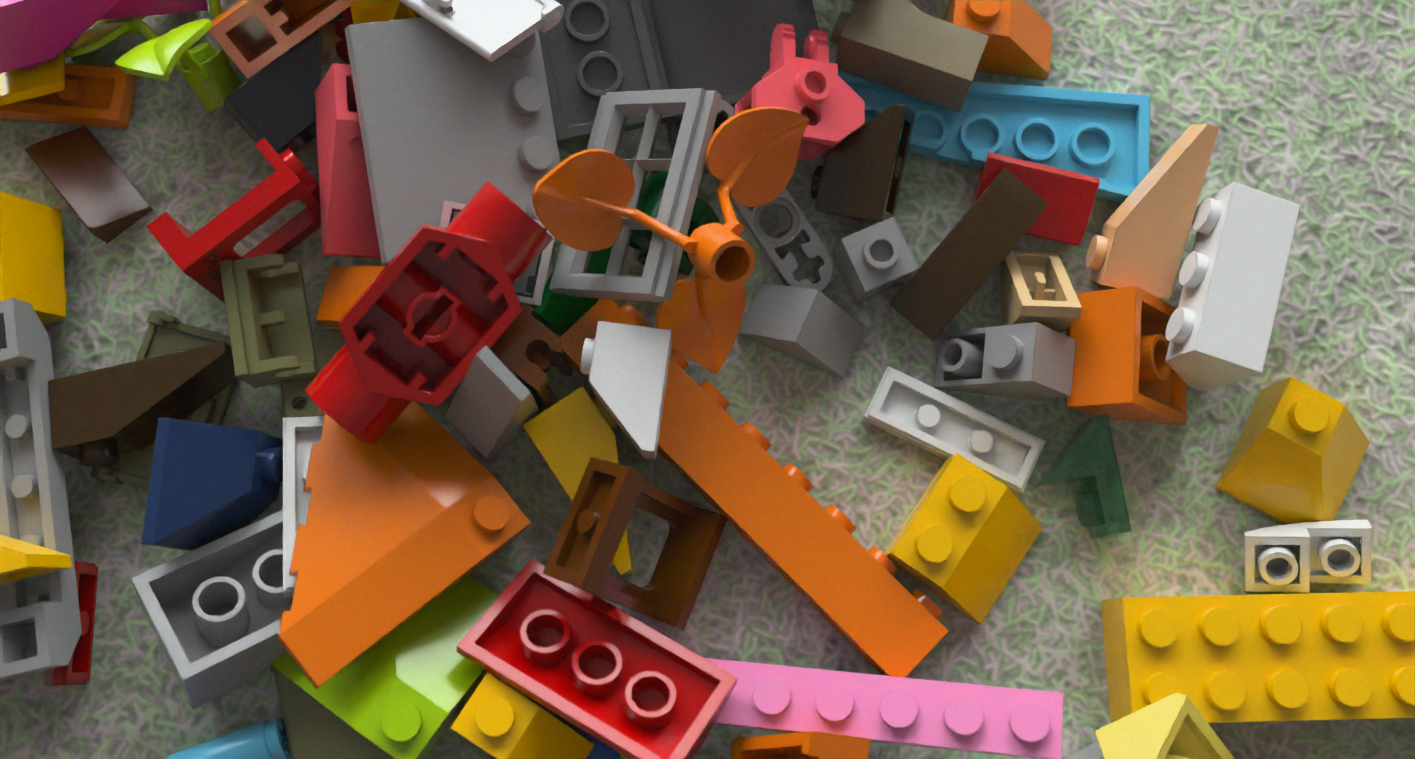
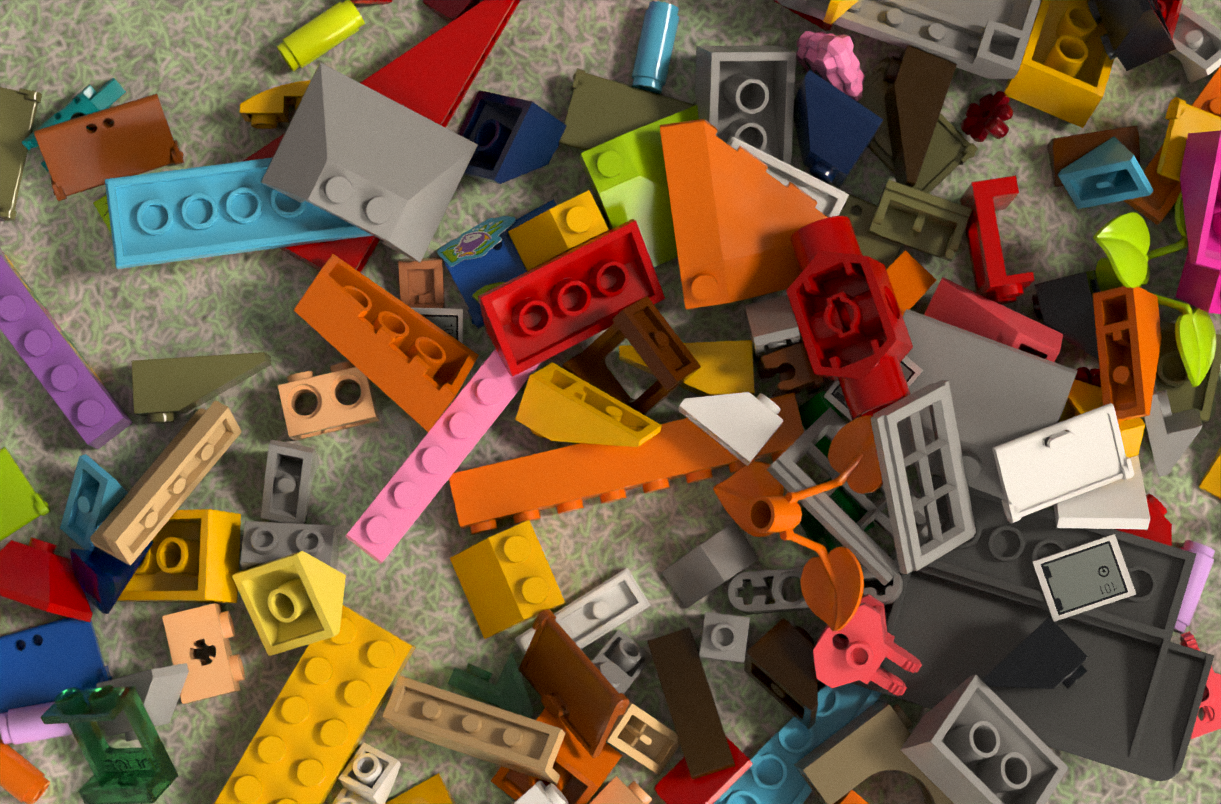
camera: 125 degrees right, 5 degrees up
(99, 146) = (1105, 176): none -> medium azure slope
(103, 318) = (988, 117): none -> dark red plant
(113, 536) = (832, 60): none -> bright pink rock
(549, 116) = (895, 483): none -> light grey piece
(730, 574) = (572, 410): none -> yellow slope
(1046, 385) = (571, 684): none -> dark orange door
(1165, 466) = (475, 728): none -> tan panel

